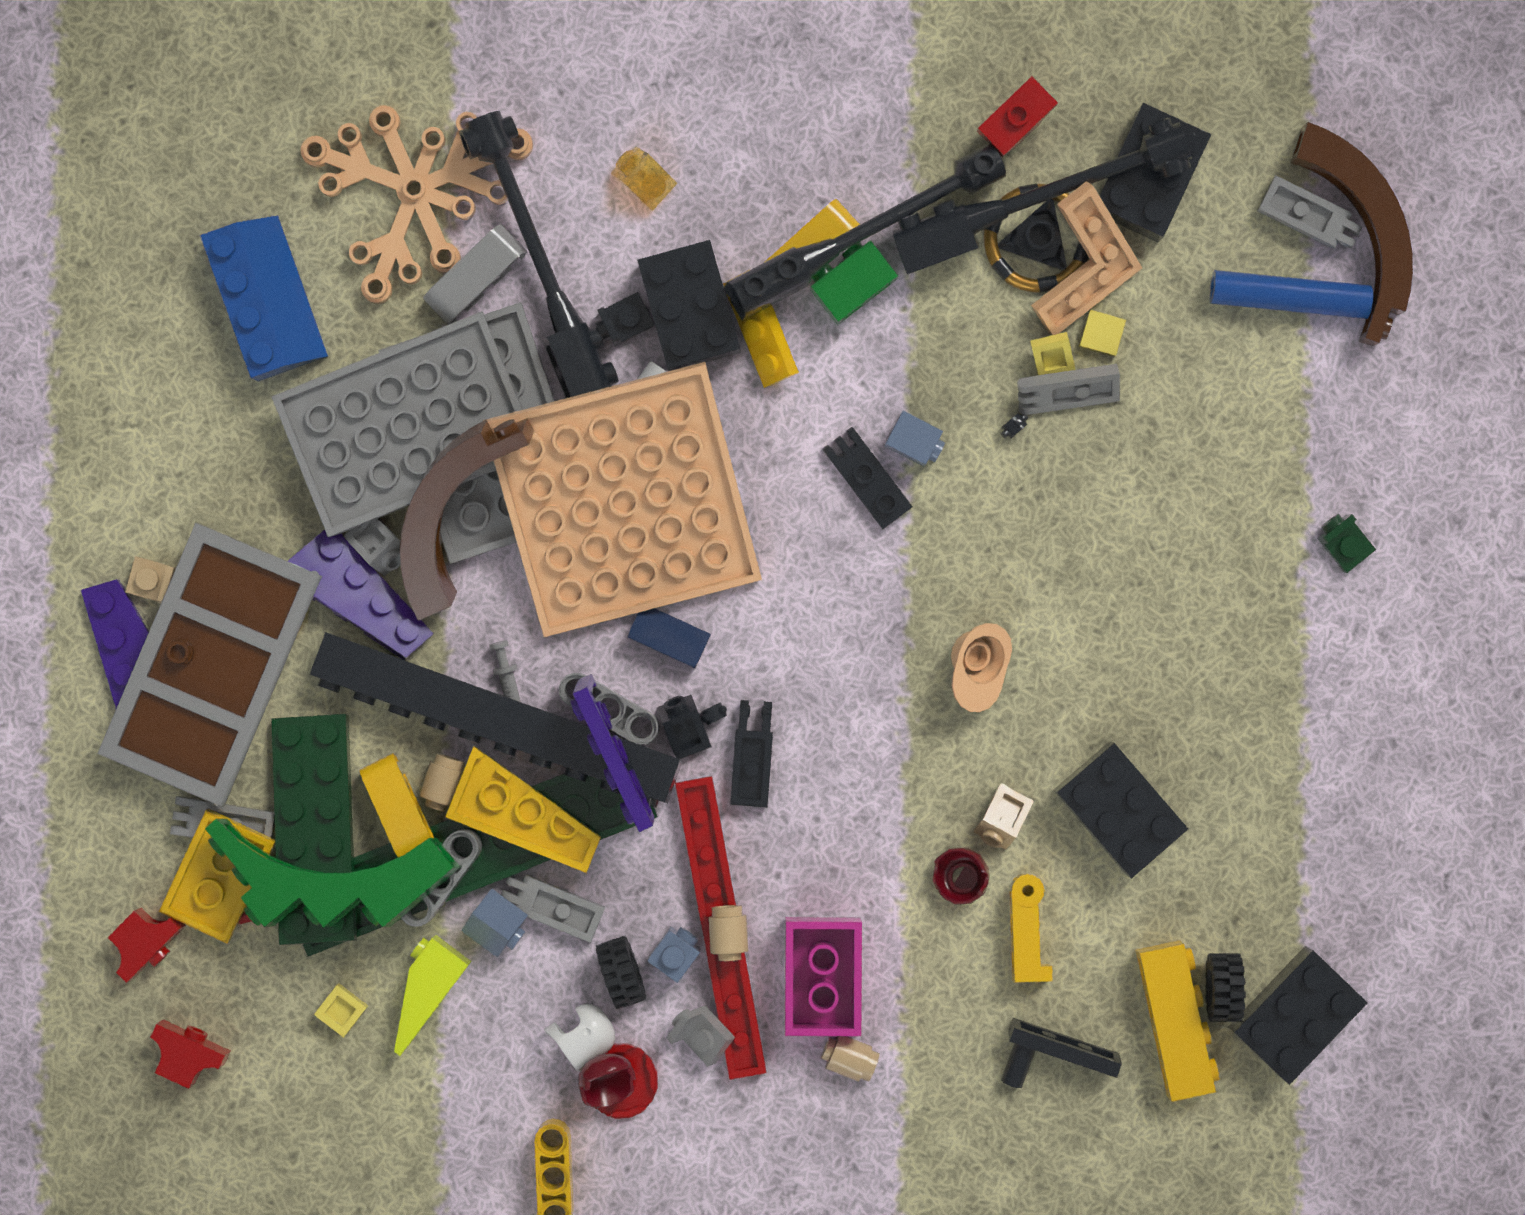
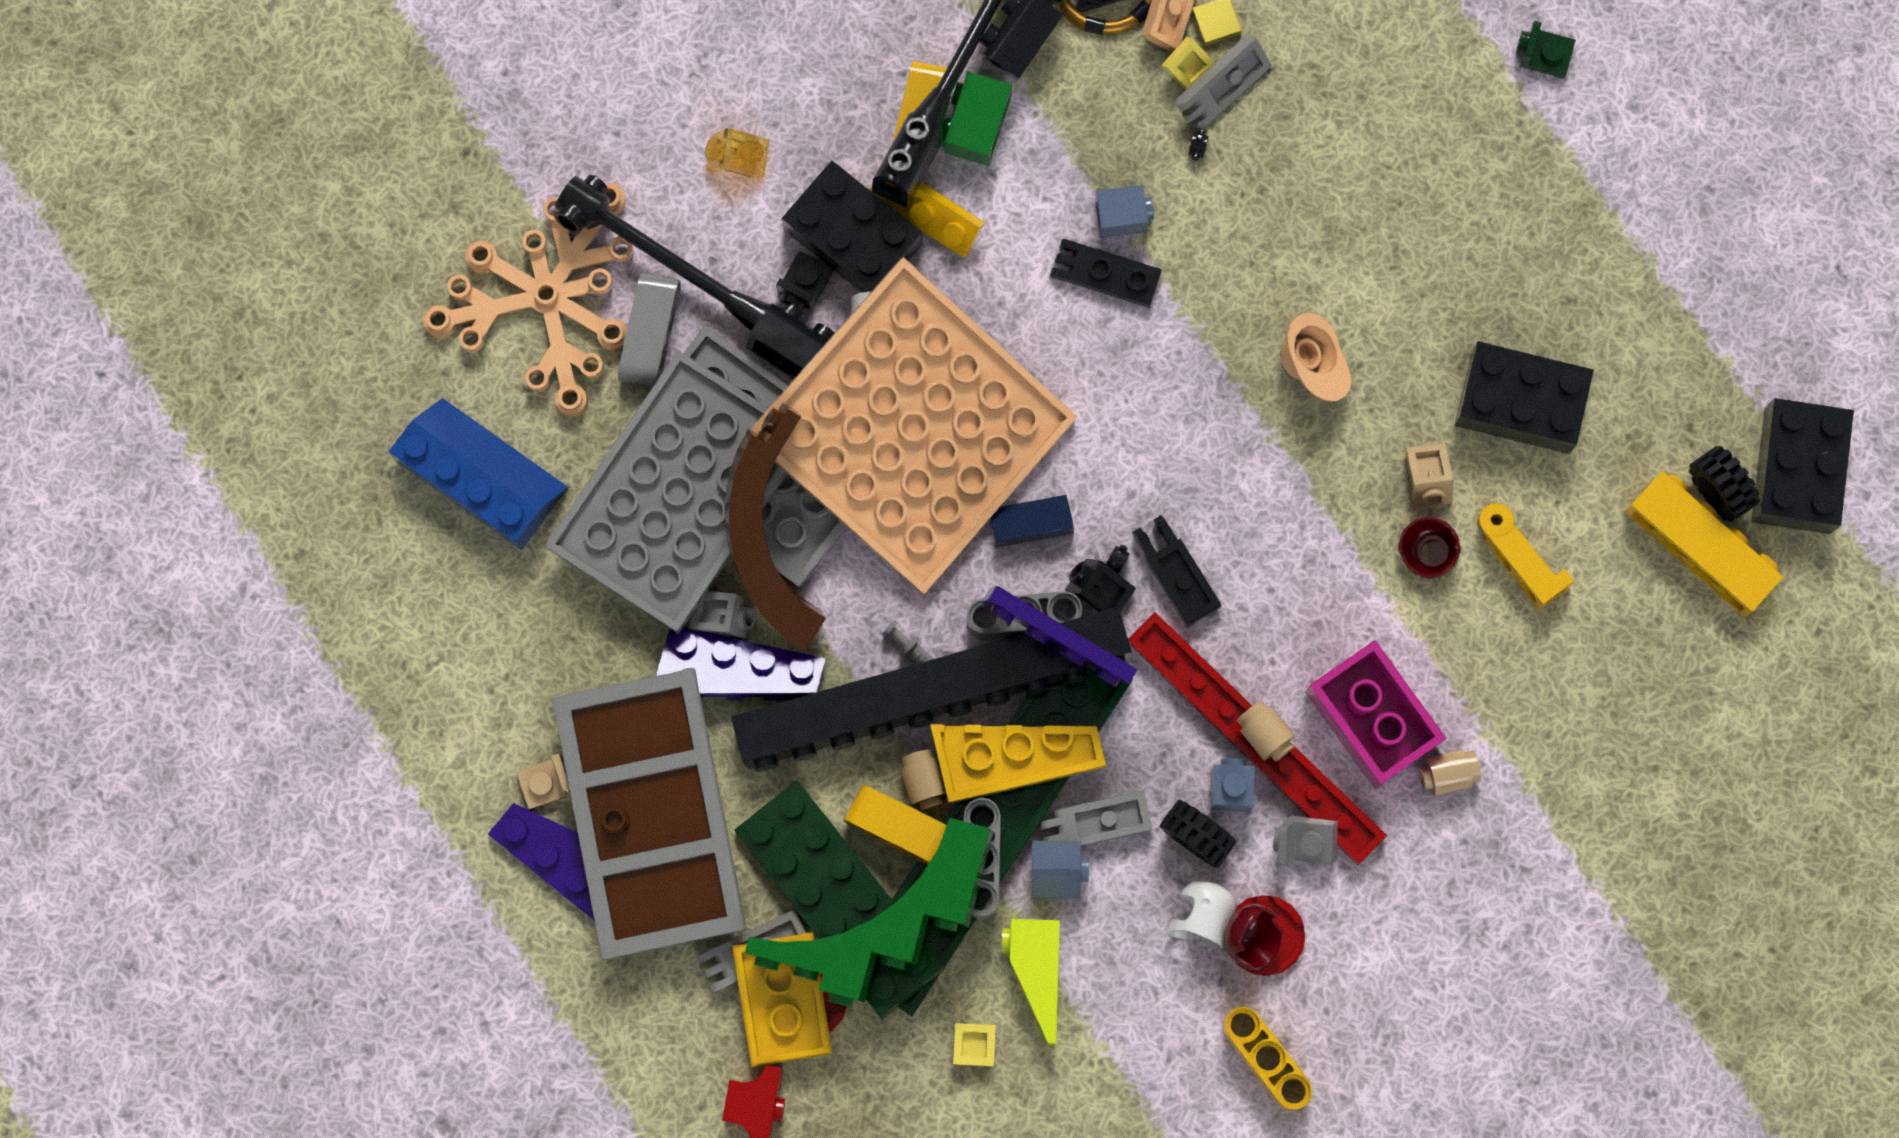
camera: 25 degrees left, 10 degrees down
(1032, 1038) = (1591, 647): black piece -> none

